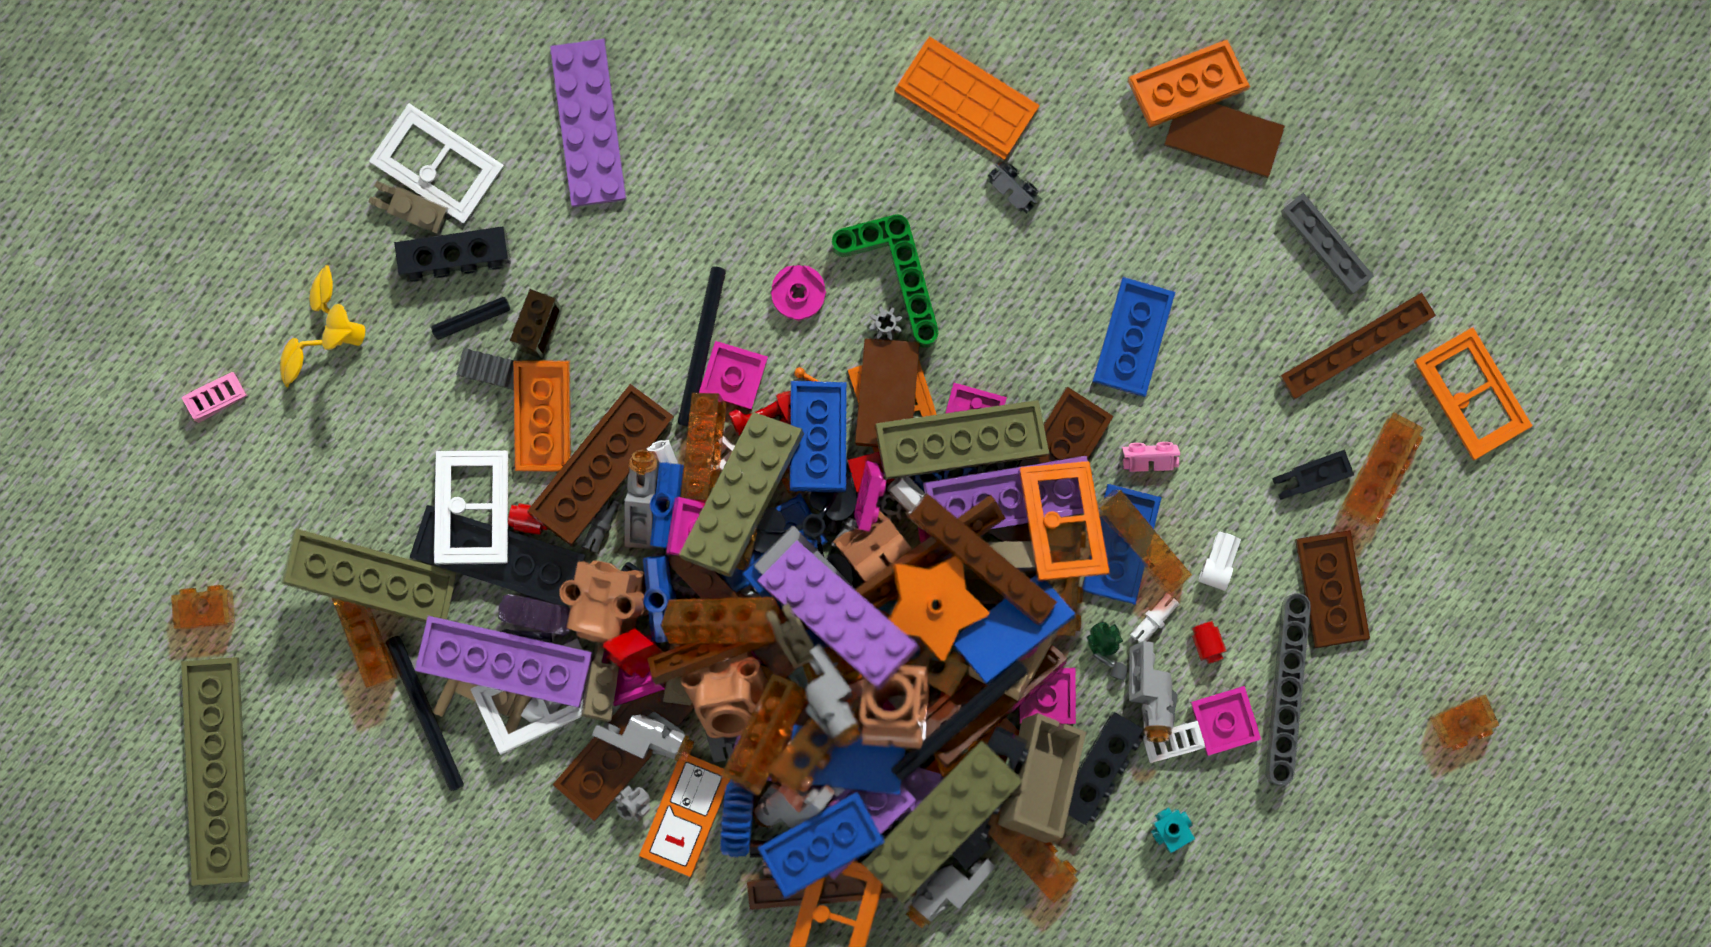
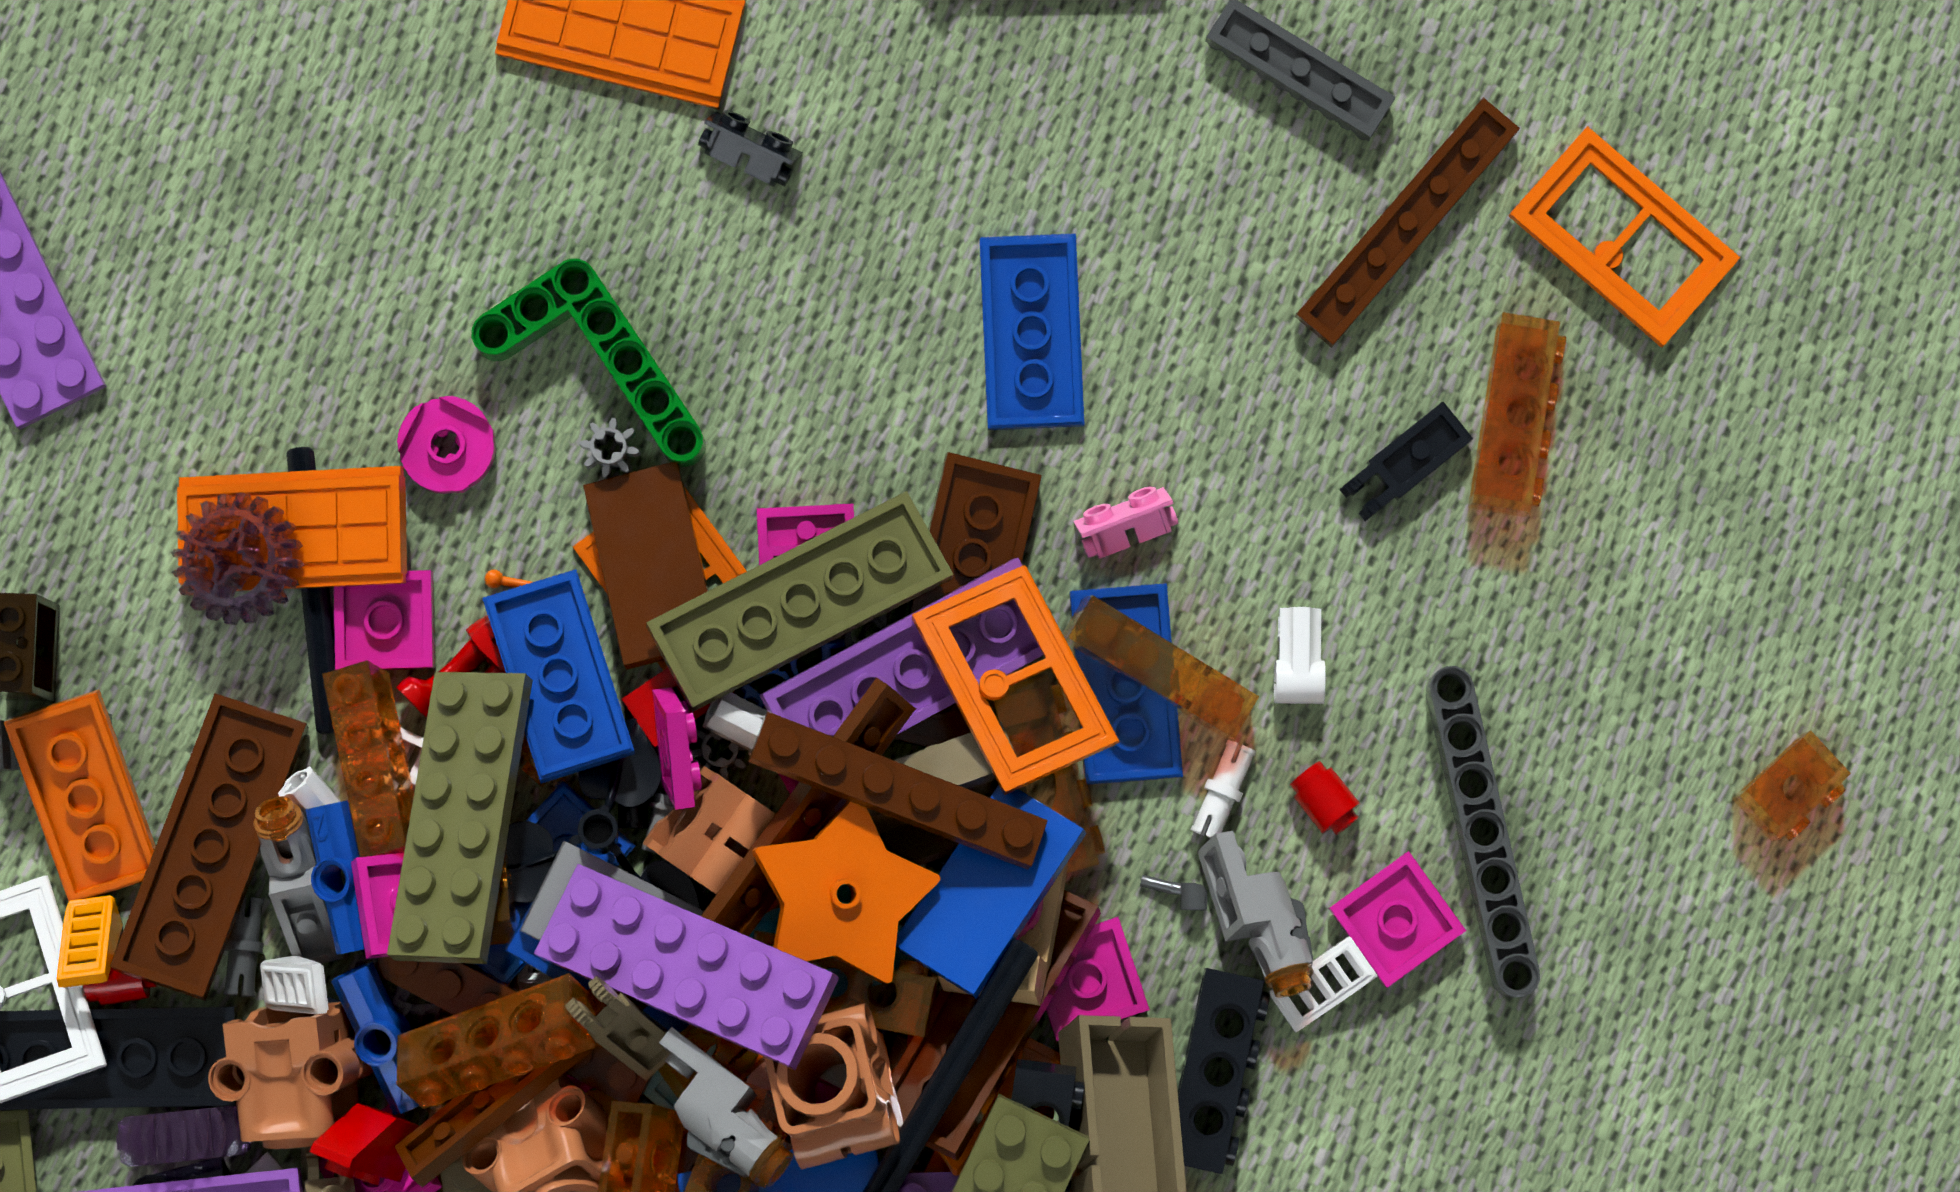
camera: 20 degrees left, 0 degrees up
(520, 490) = (88, 934): none -> light orange slope
(622, 554) = (294, 985): none -> white slope
(684, 296) = (246, 540): none -> gear
(701, 310) = (343, 517): none -> orange piece
(1104, 639) = (1150, 852): clear green gear -> none
(1182, 833) = (1387, 1134): teal brick -> none
(1333, 589) = (1501, 640): reddish brown tile -> none

